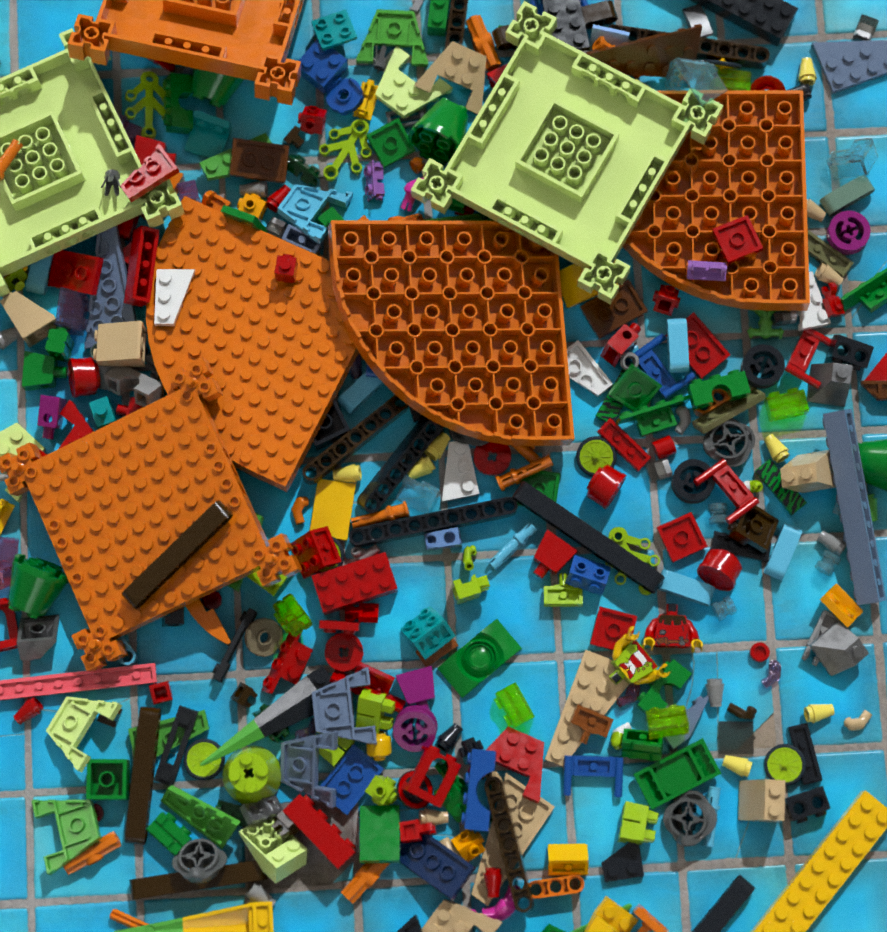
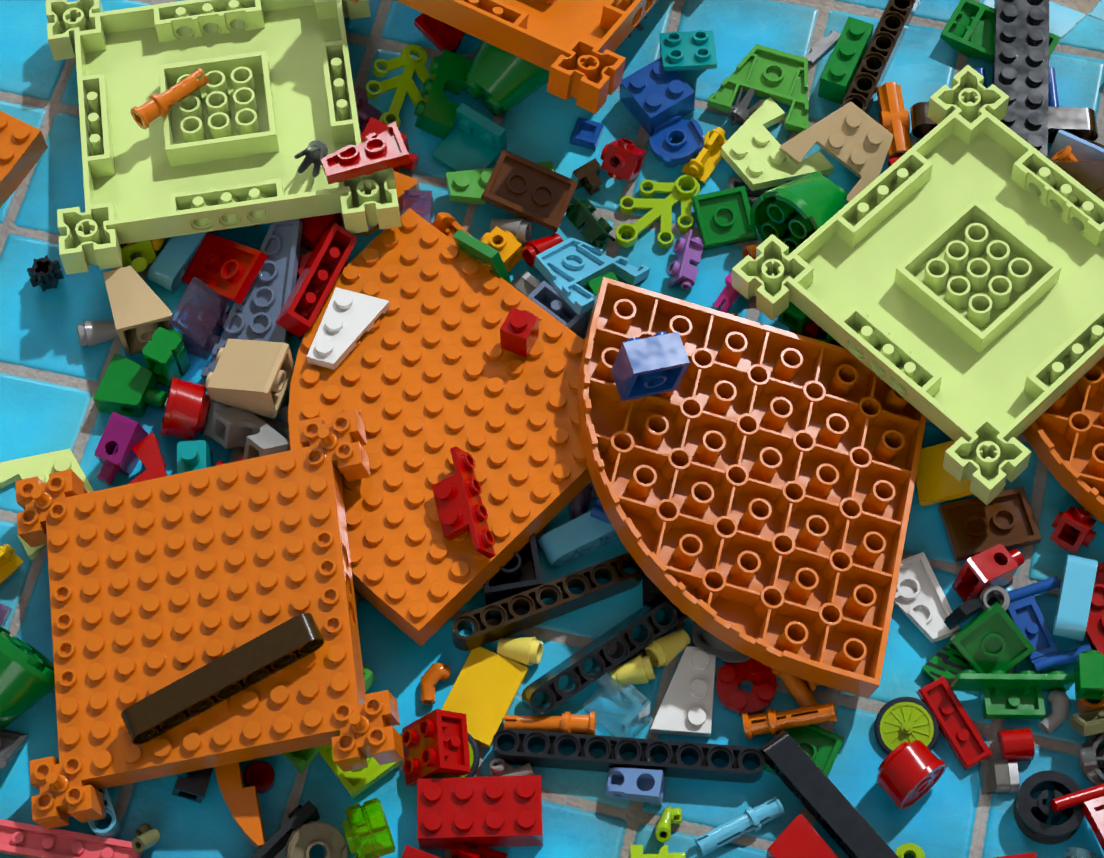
camera: 20 degrees right, 15 degrees down
(157, 658) = (145, 838): none -> olive arm
(281, 109) = (586, 133): none -> blue tile
(286, 398) = (461, 504): none -> red bracket
(379, 276) = (650, 365): none -> brick
(612, 374) = (963, 612): none -> black tile

